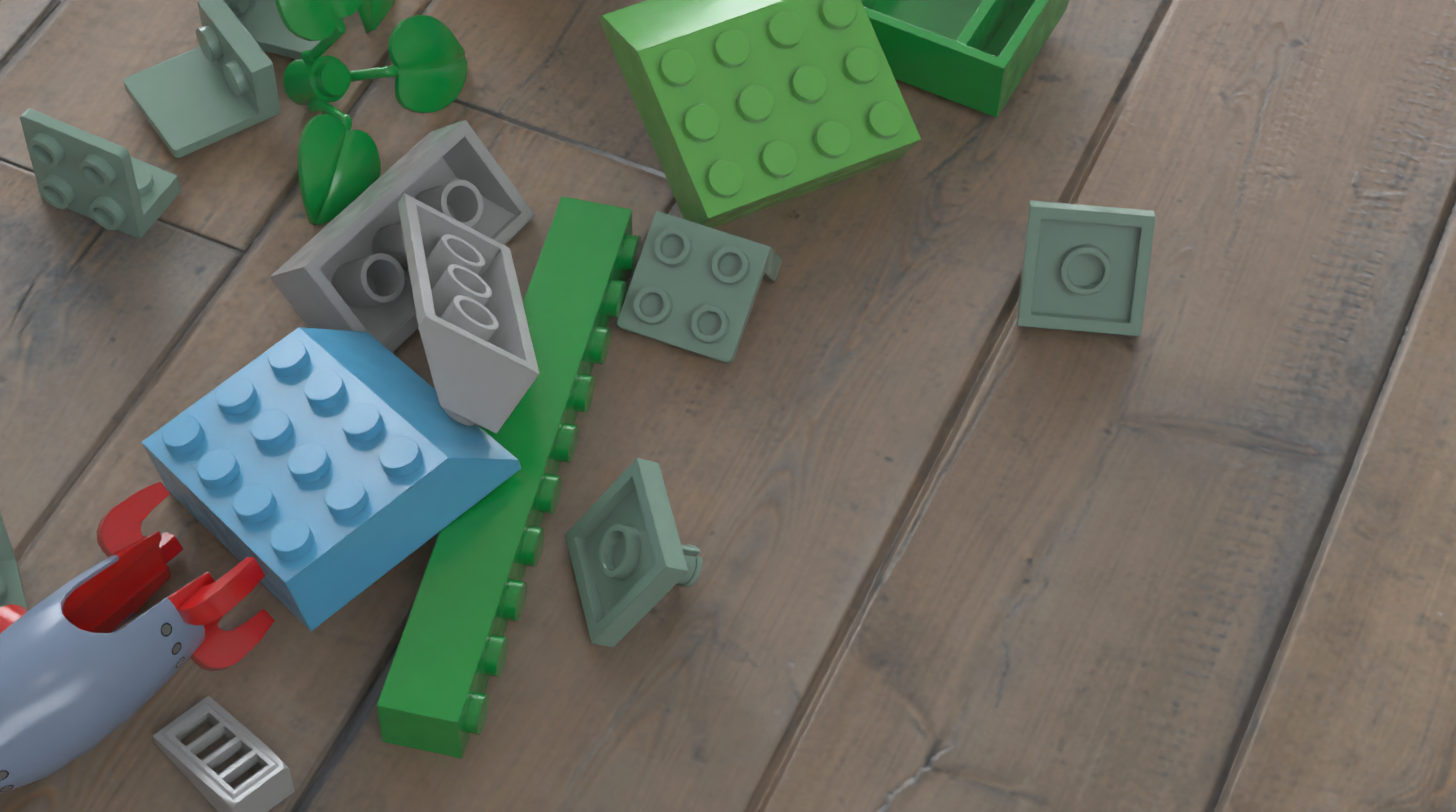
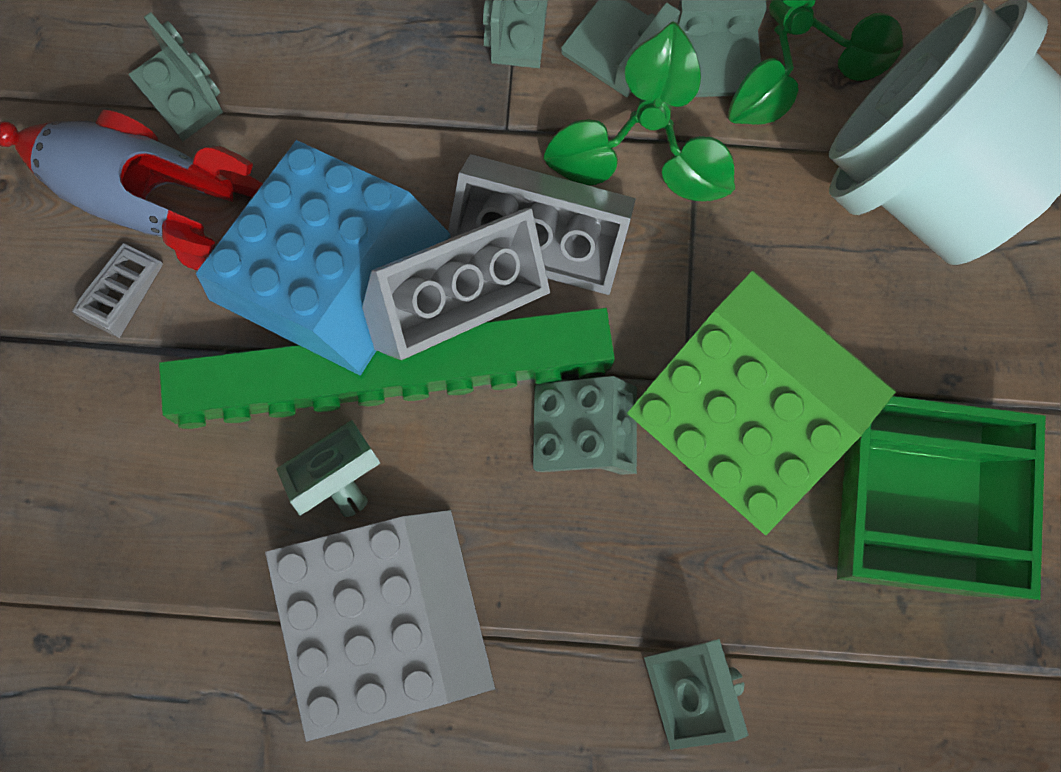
camera: 65 degrees right, 25 degrees up
(860, 591) = (378, 623): none -> light grey slope

